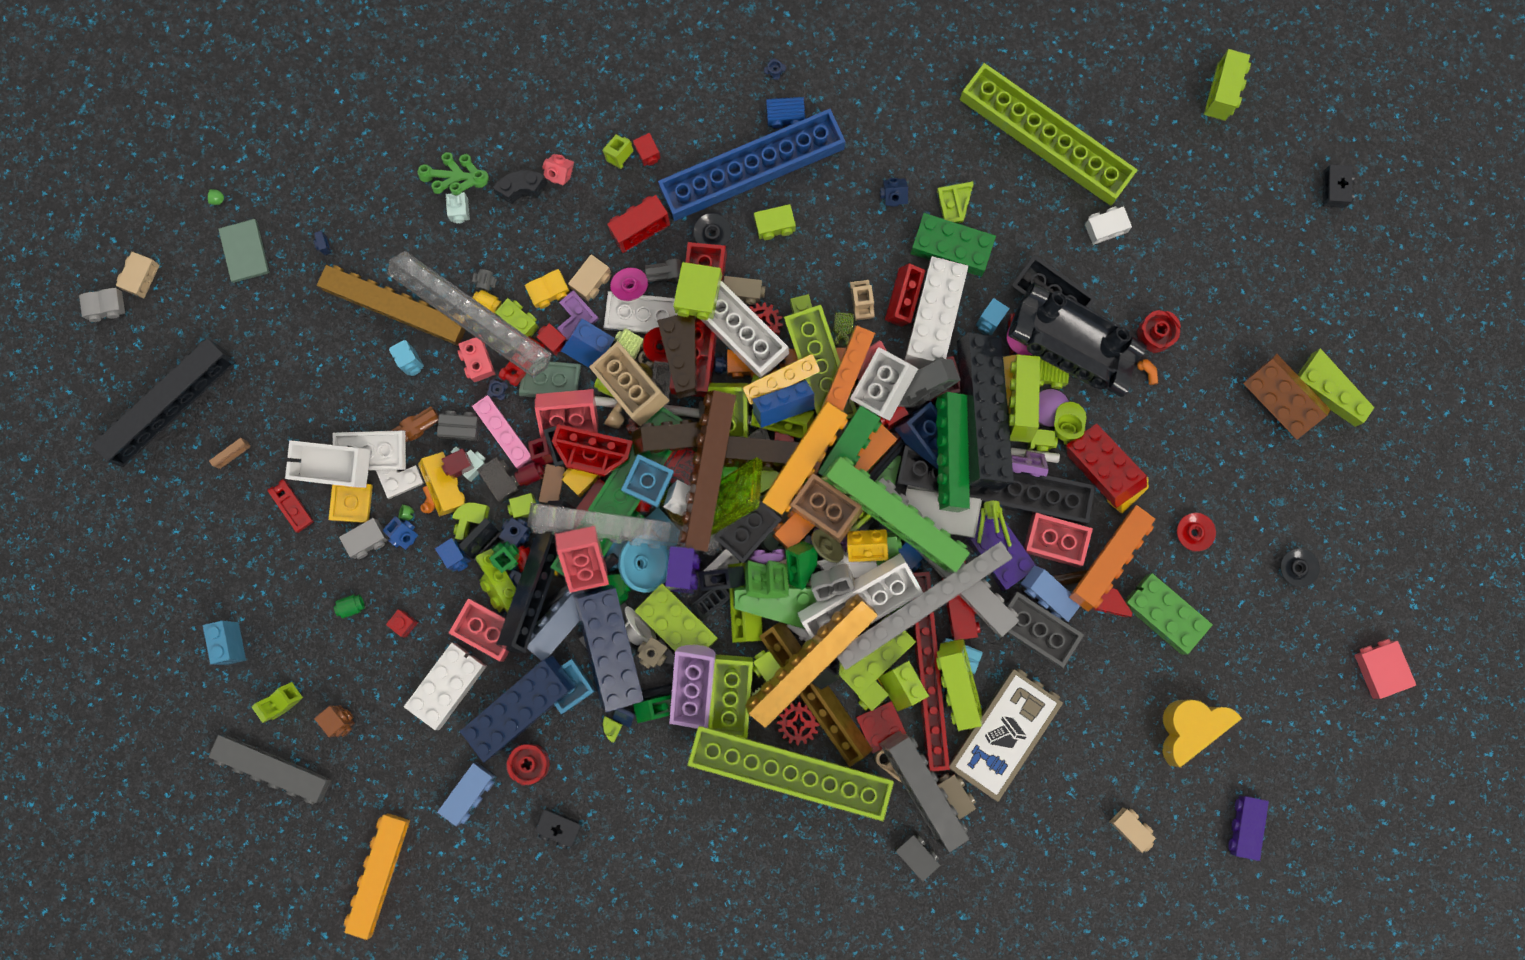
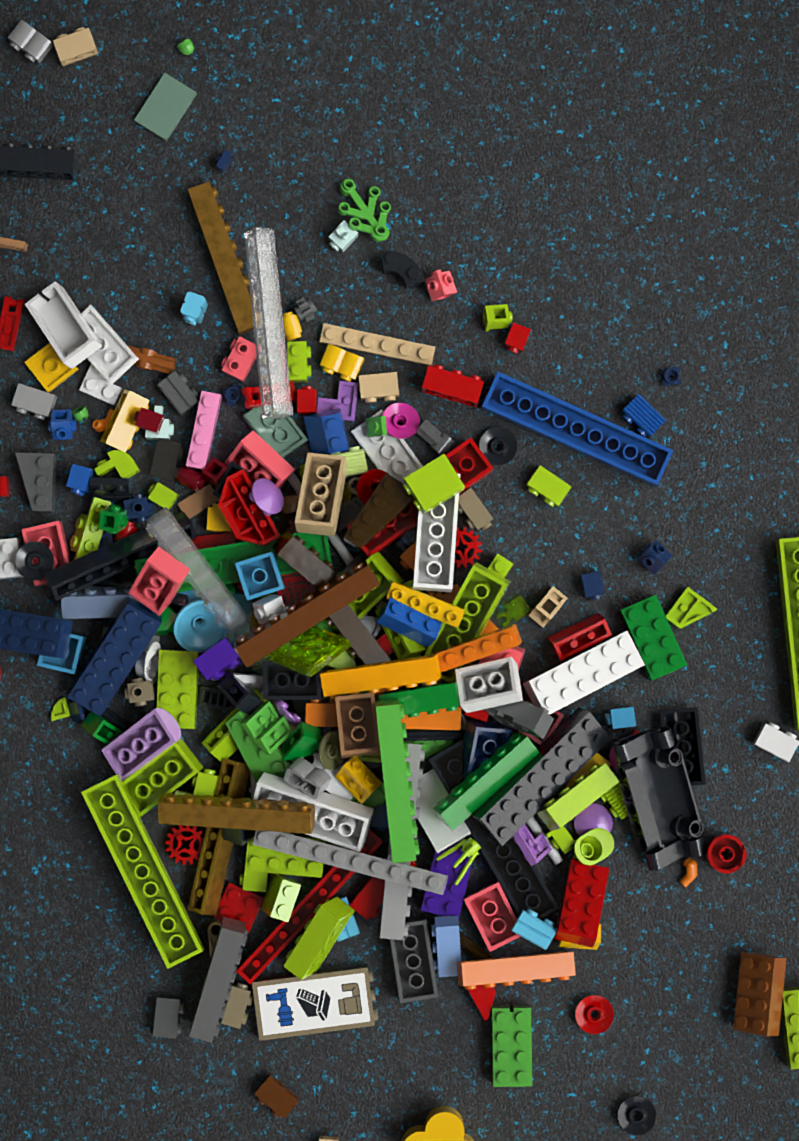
camera: 45 degrees right, 5 degrees up
(424, 586) = (39, 479): none -> dark grey wedge
(470, 643) = (25, 556): none -> black dish
(559, 252) = (377, 344): none -> tan plate
(594, 425) = (267, 496): none -> medium lavender dish
(617, 304) = (376, 426): none -> bright green plate
(875, 254) = (592, 585): none -> dark blue brick
(1052, 827) = (276, 1096): none -> reddish brown brick
(1095, 516) = (534, 929): none -> medium azure brick

